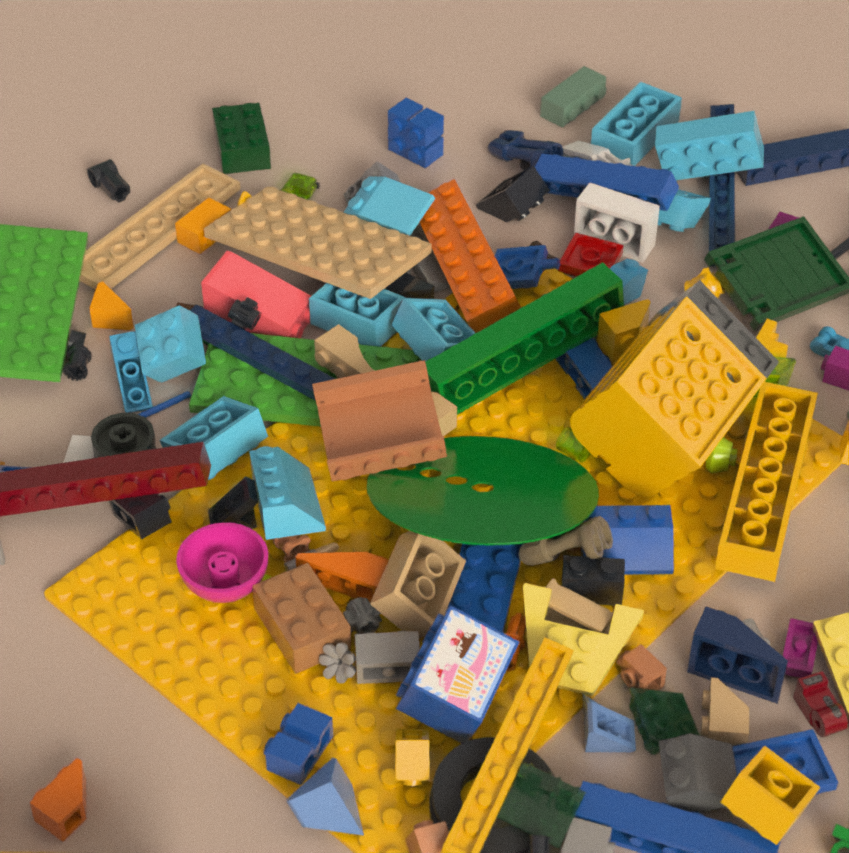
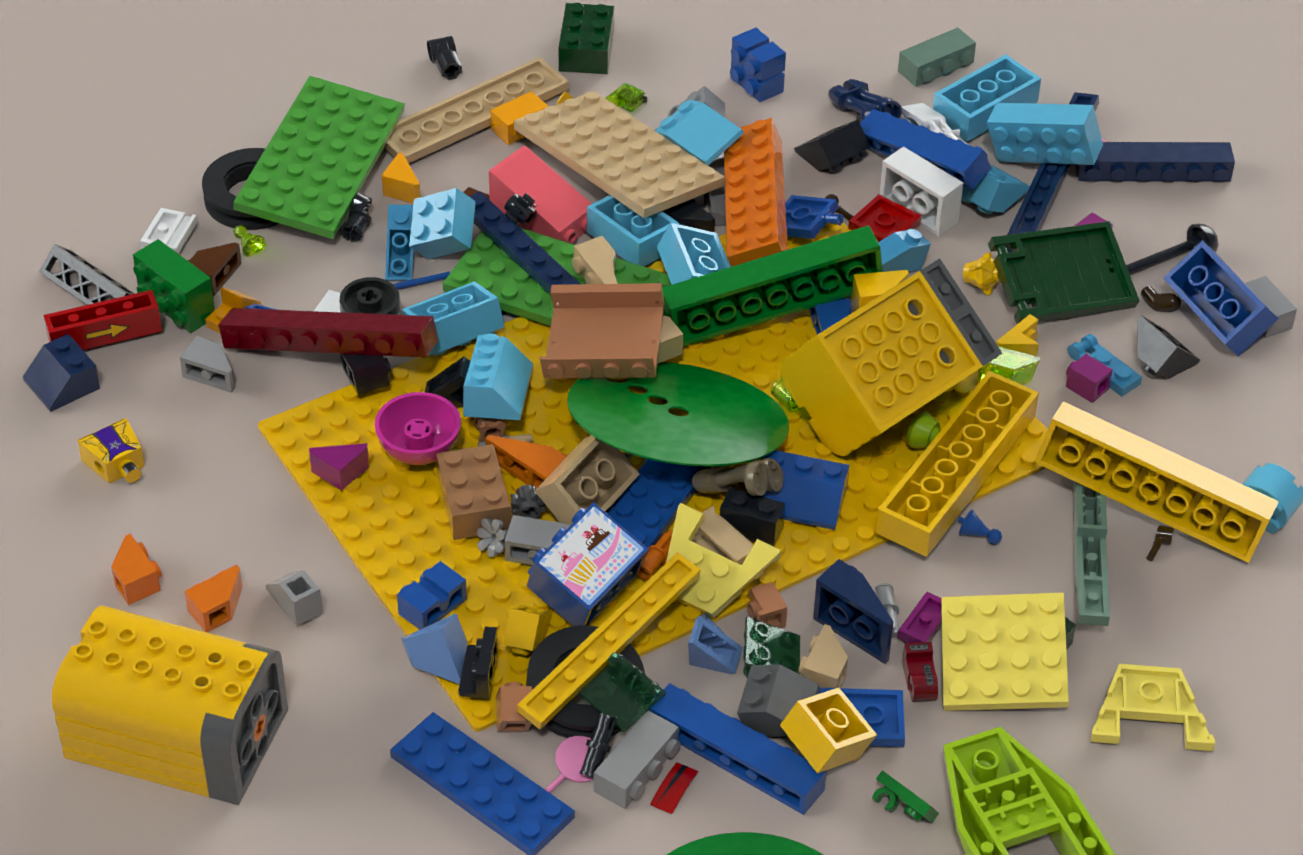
camera: 15 degrees right, 0 degrees up
(149, 618) = (339, 463): none -> magenta slope
(151, 776) = (297, 596): none -> light grey slope
(378, 811) = (479, 666): none -> black bracket
(803, 539) = (974, 526): none -> blue piece

